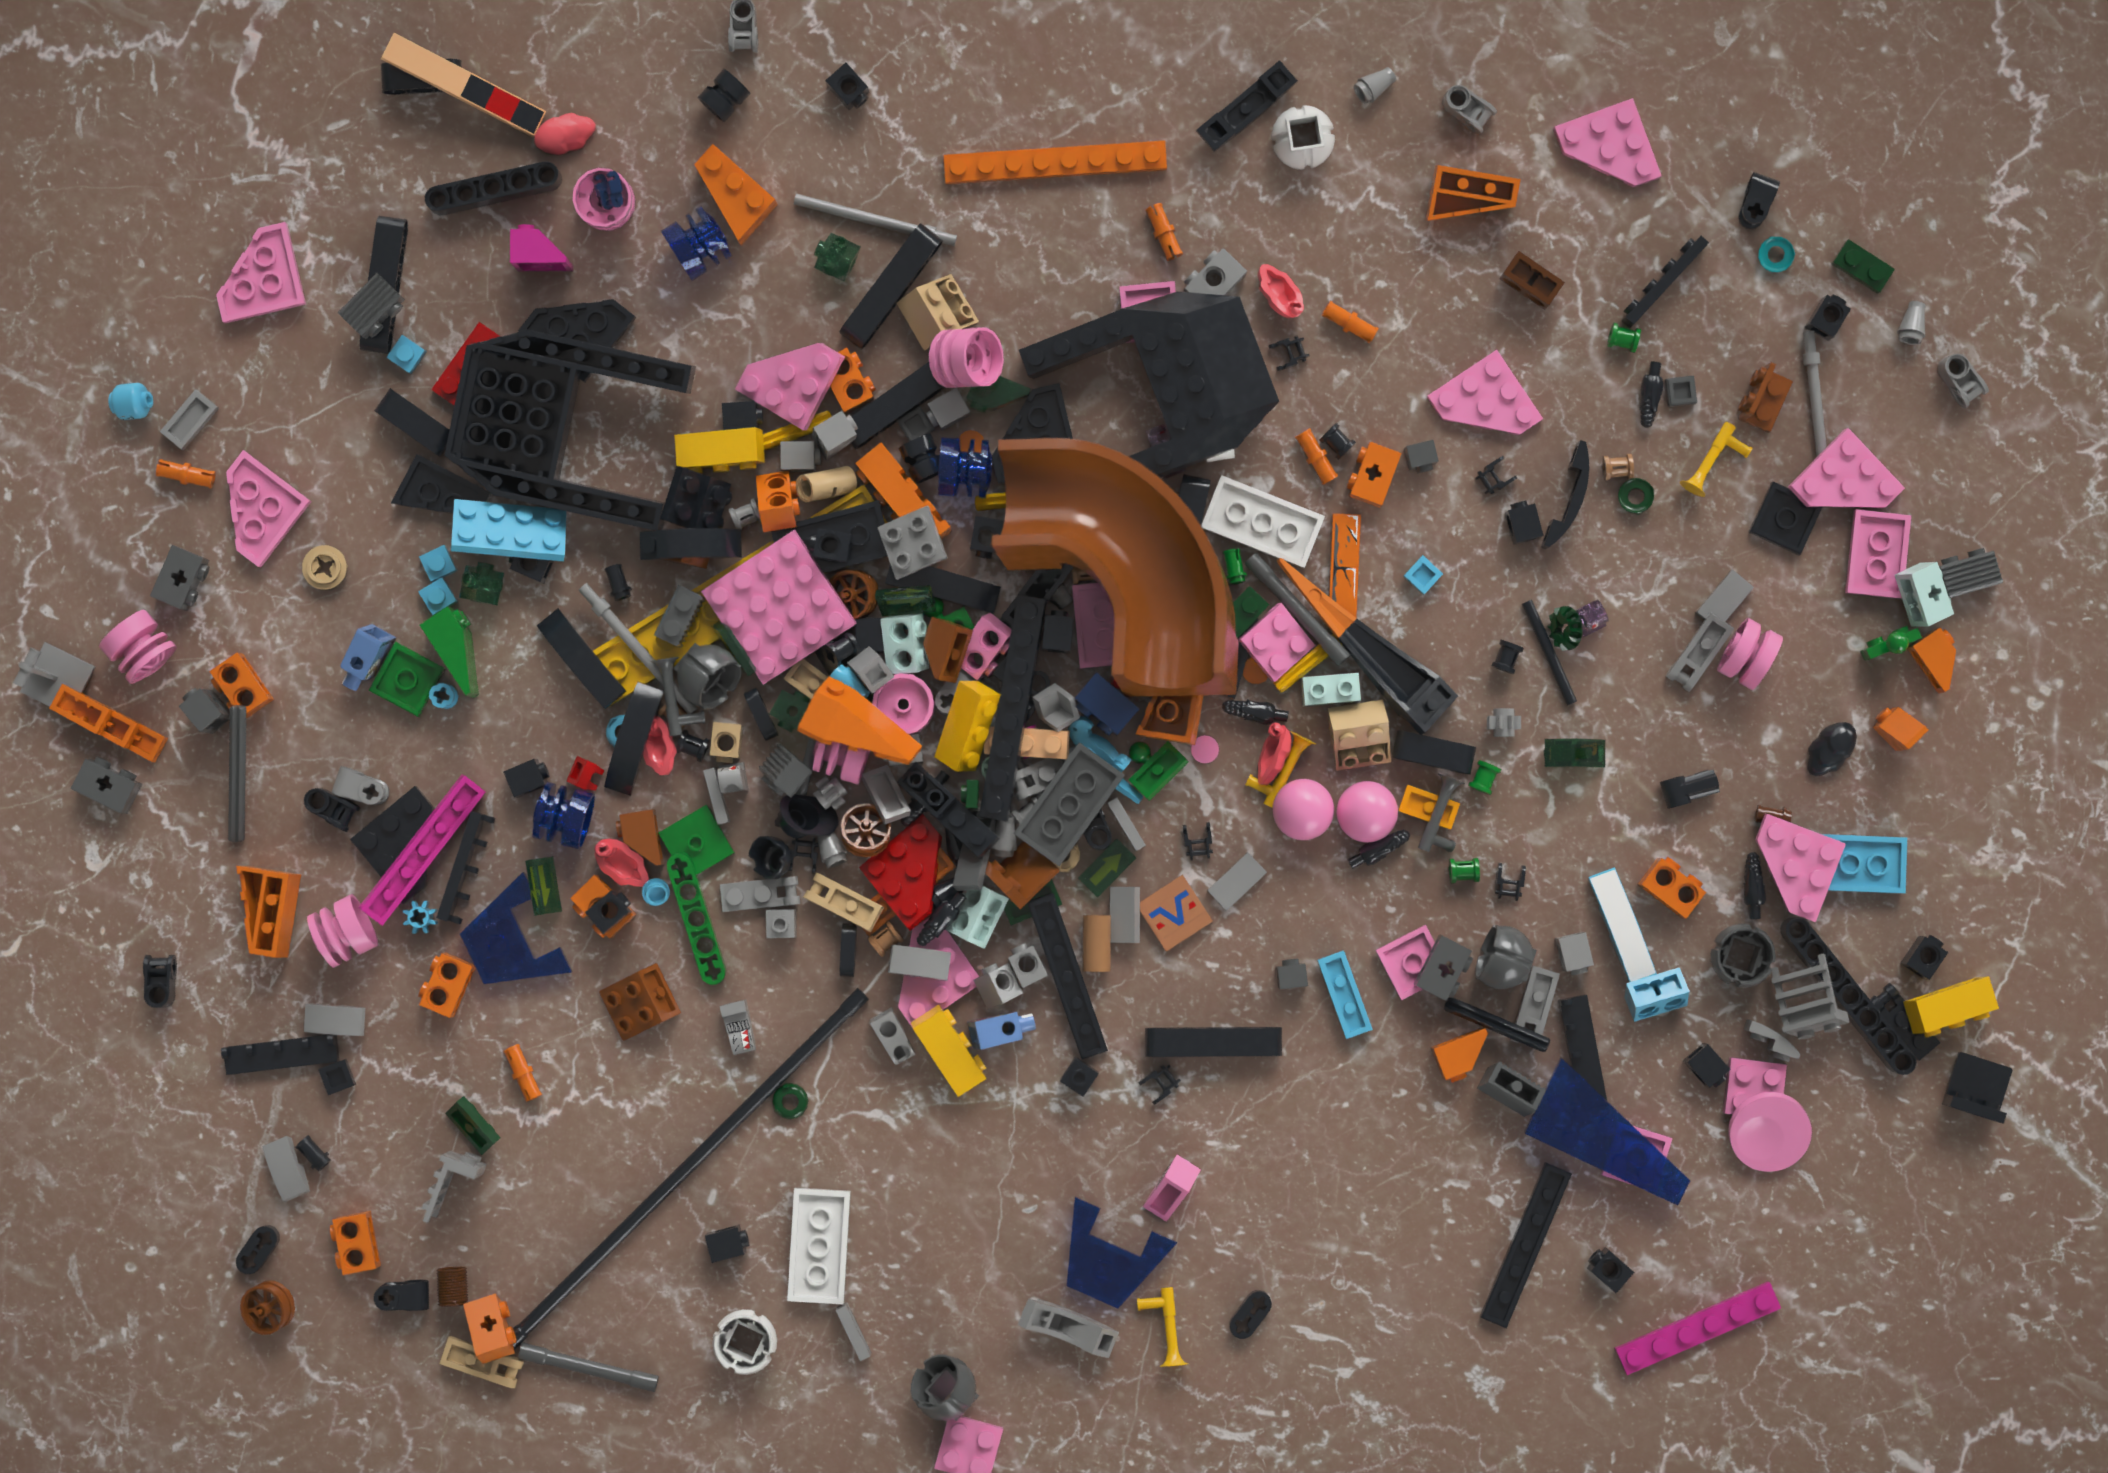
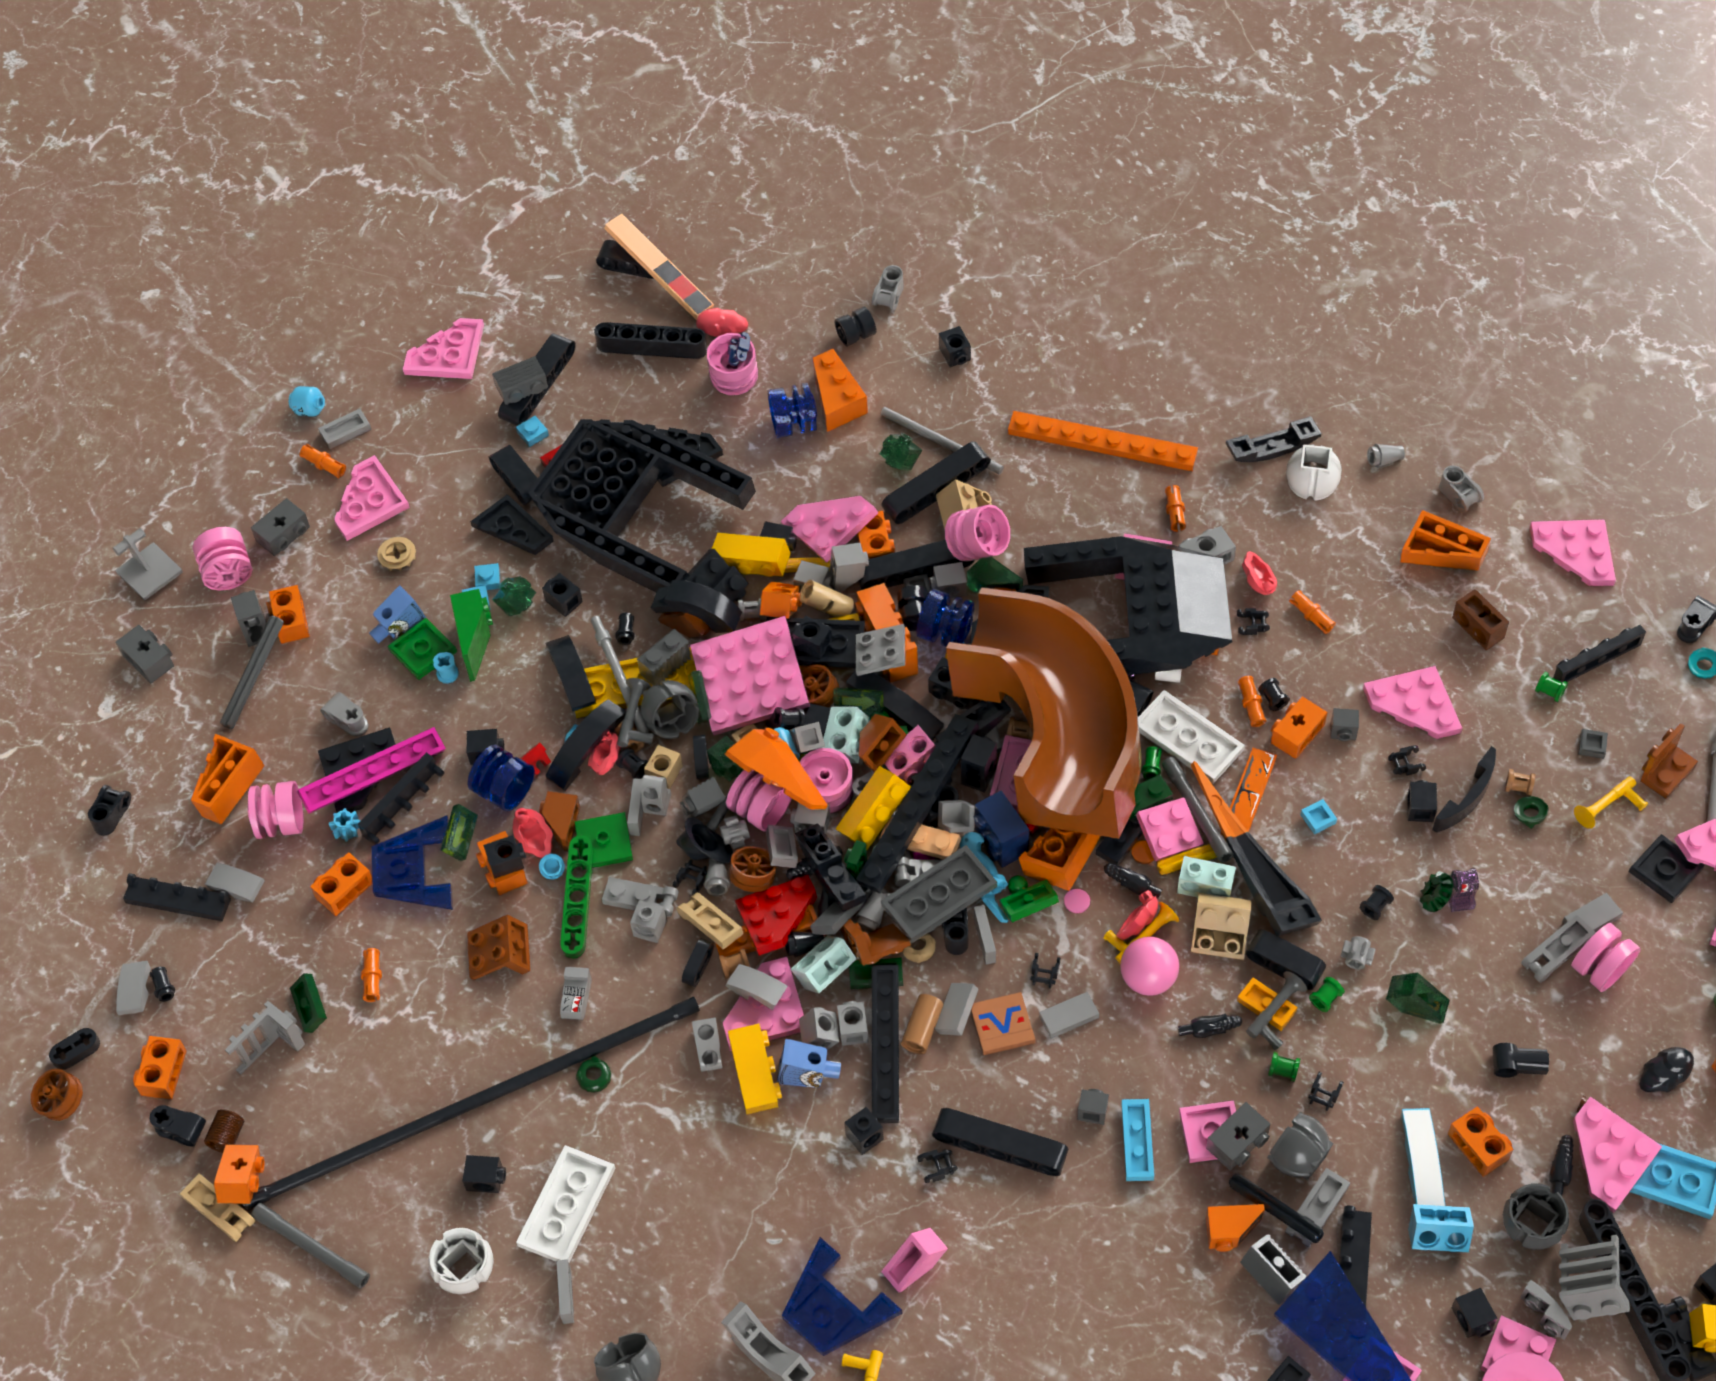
camera: 25 degrees right, 30 degrees down
(108, 723) = (171, 611): orange slope -> none
(332, 808) = (317, 723): black piece -> none
(337, 1077) = (213, 928): black plate -> none
(508, 530) = (554, 560): medium azure plate -> none
(535, 252) = (664, 384): dark pink slope -> none
(770, 856) = (661, 865): black hair -> none
(941, 918) = (790, 955): black piece -> none
(1106, 868) = (954, 968): clear green tile -> none
(1367, 811) = (1208, 986): bright pink piece -> none
(1549, 652) = (1417, 914): black bar -> none
(1574, 953) = (1370, 1169): light grey brick -> none
(1650, 394) = (1565, 735): black piece -> none

